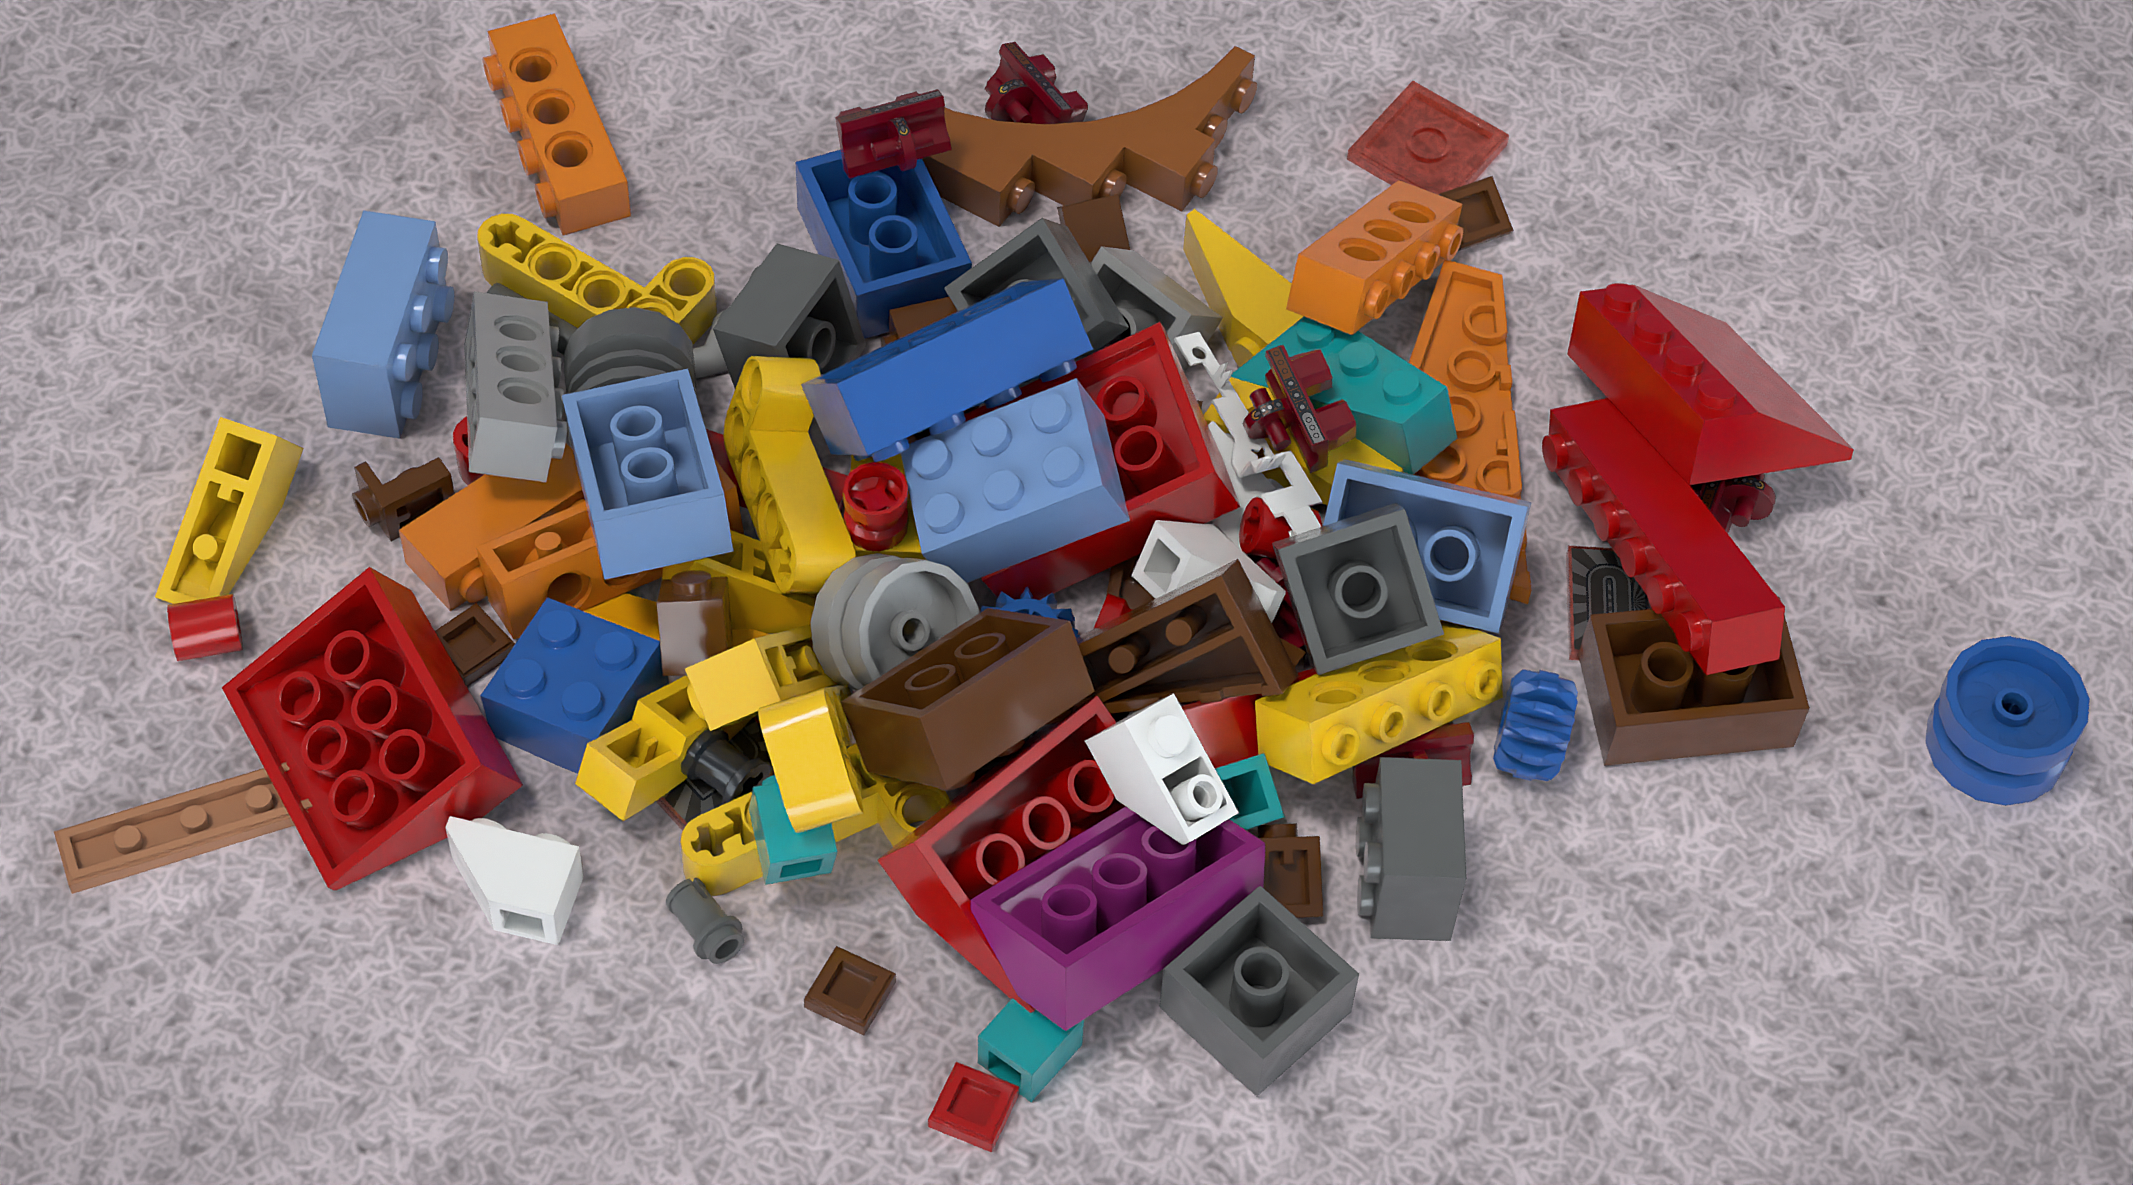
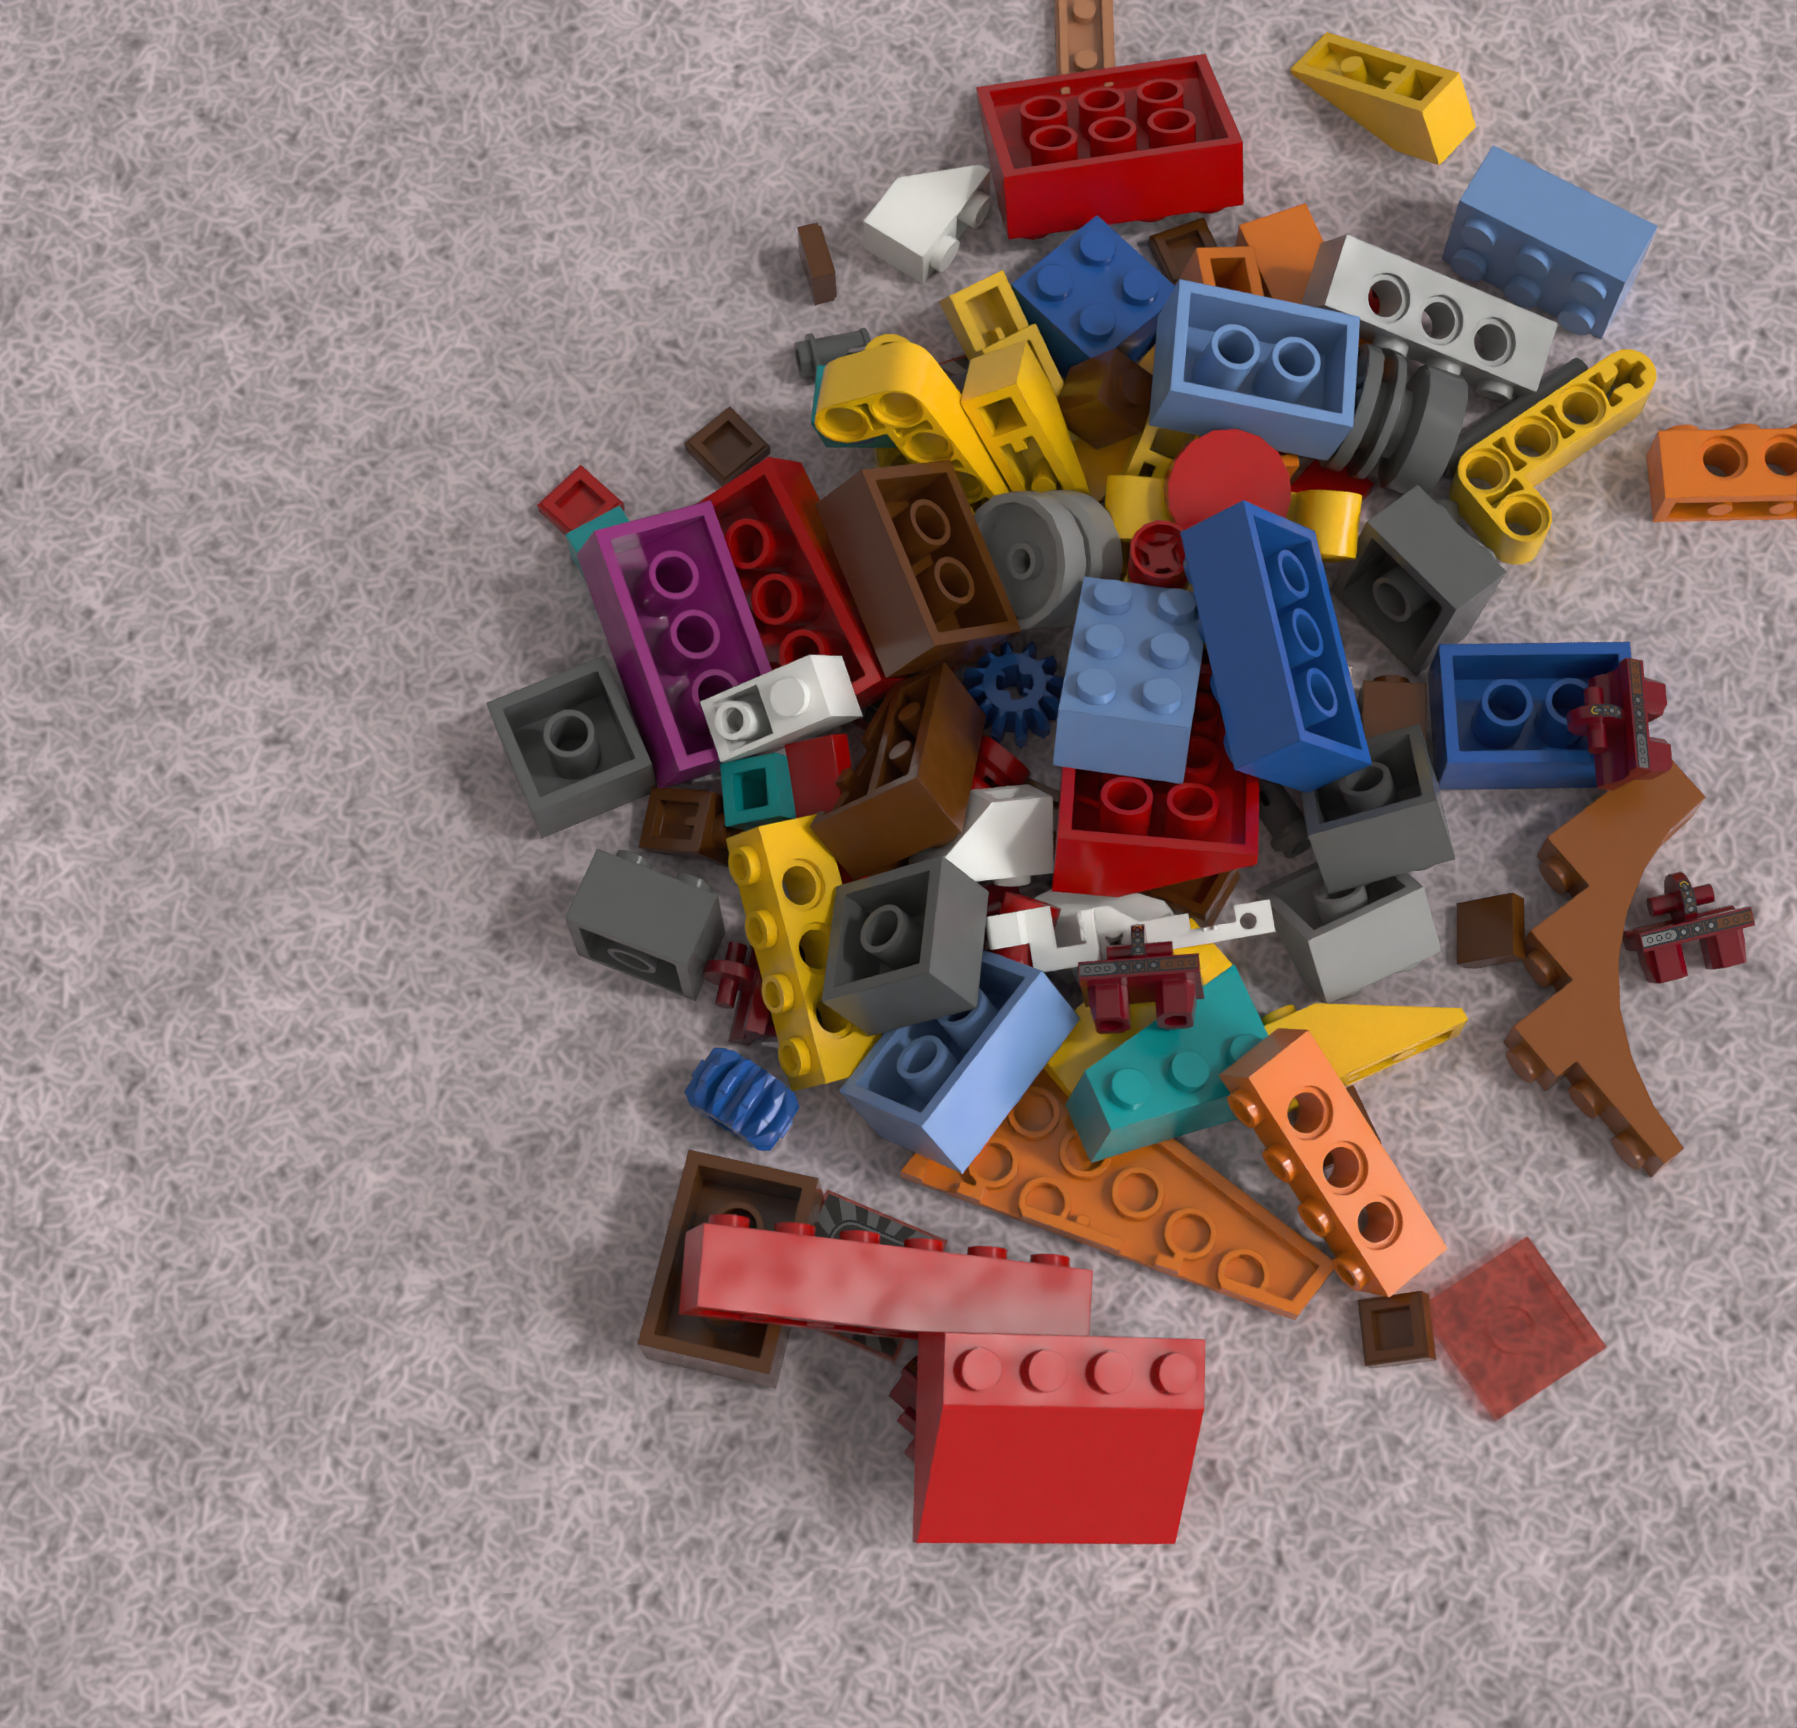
camera: 115 degrees right, 15 degrees up
(205, 627) = (1271, 52): red gear -> none
(402, 498) = (1359, 213): reddish brown bracket -> none
(607, 963) = (817, 263): none -> reddish brown tile
(781, 470) = (1222, 471): none -> red tile
(2007, 720) = (575, 1602): blue wheel -> none

